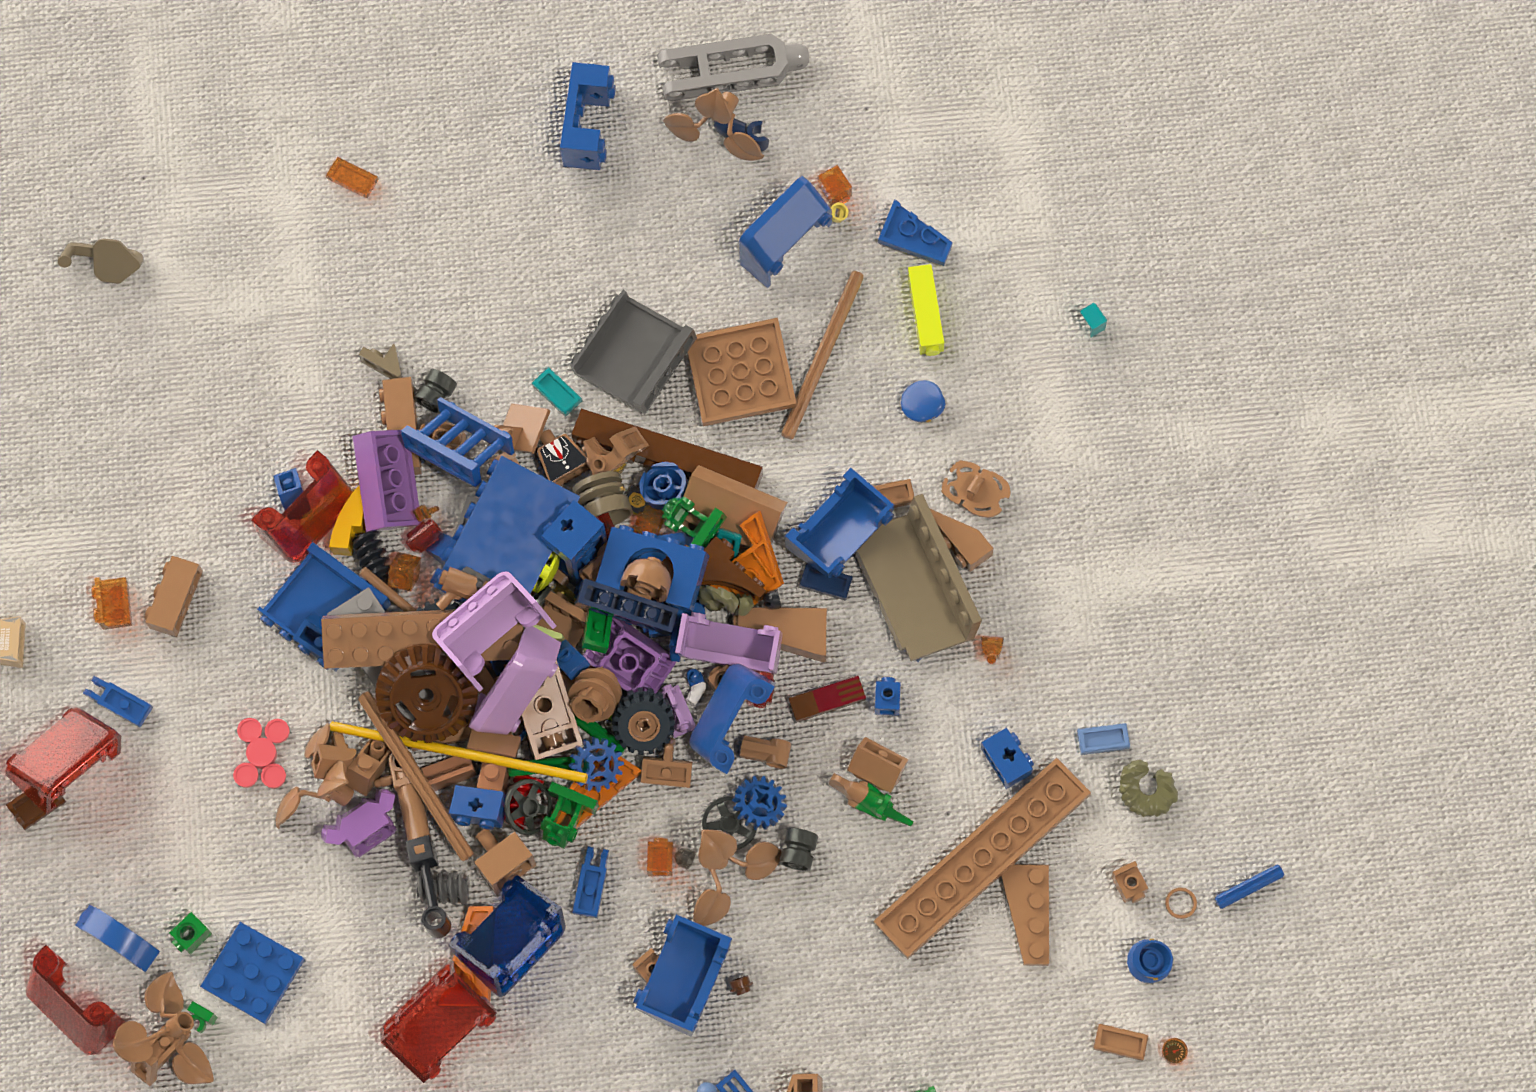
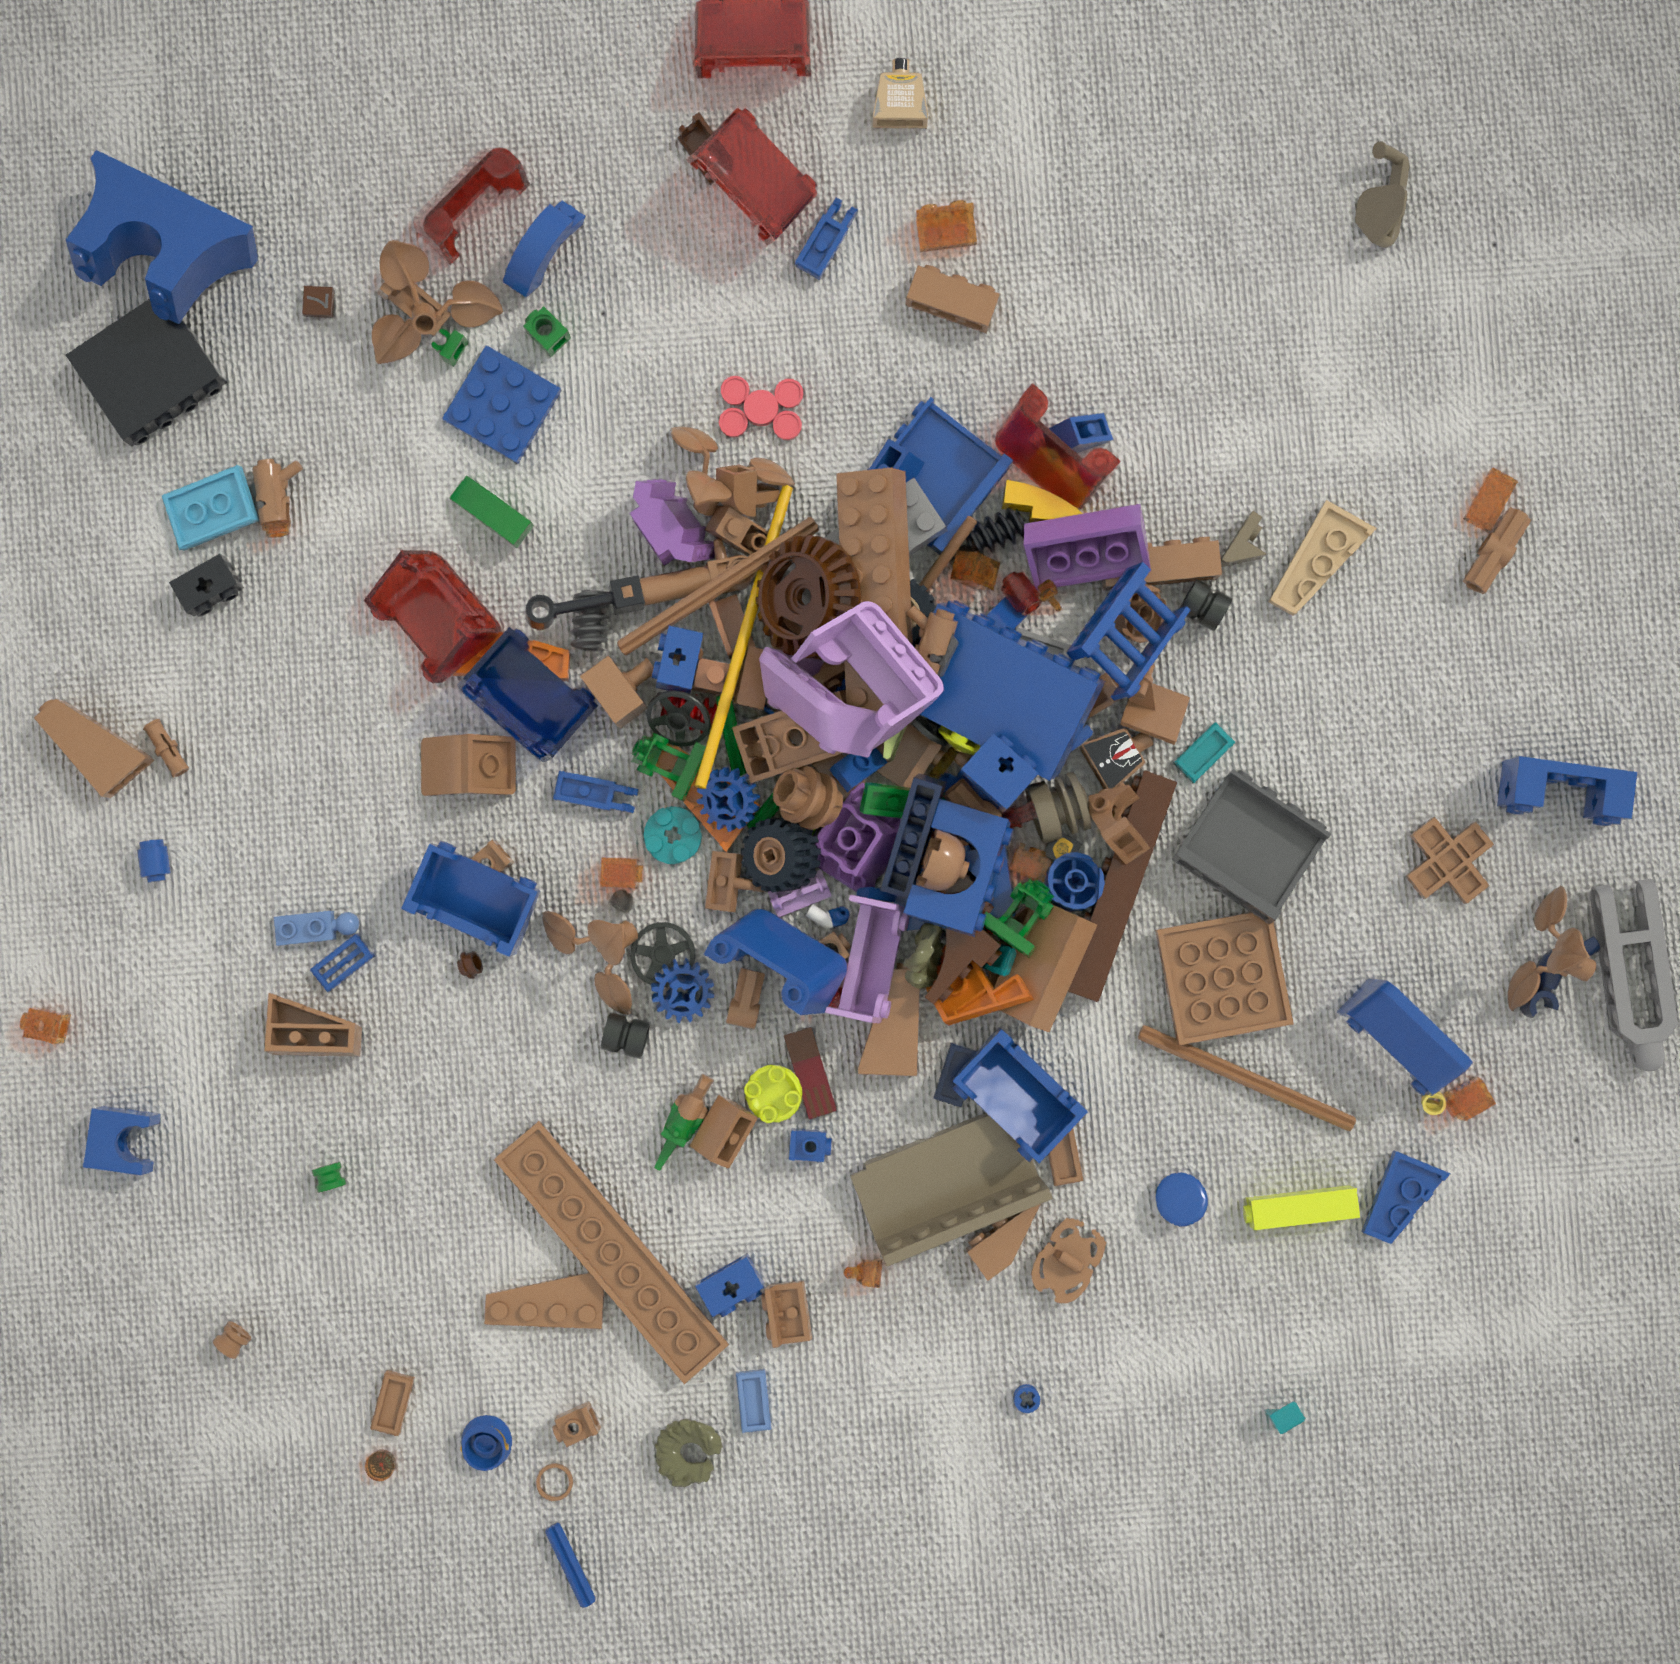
camera: 90 degrees right, 15 degrees up
(346, 977) = (492, 511): none -> green slope
(391, 302) = (1322, 552): none -> tan wing
(393, 171) = (1497, 550): none -> medium nougat piece
(568, 992) = (468, 765): none -> medium nougat piece
(615, 823) = (664, 821): none -> teal plate
(643, 203) = (1449, 860): none -> medium nougat plate
(772, 600) = (926, 1011): black hinge -> none
(844, 727) = (773, 1093): none -> neon yellow dish
(1028, 710) = (787, 1313): none -> medium nougat bracket
(1089, 513) = (1035, 1397): none -> blue bush

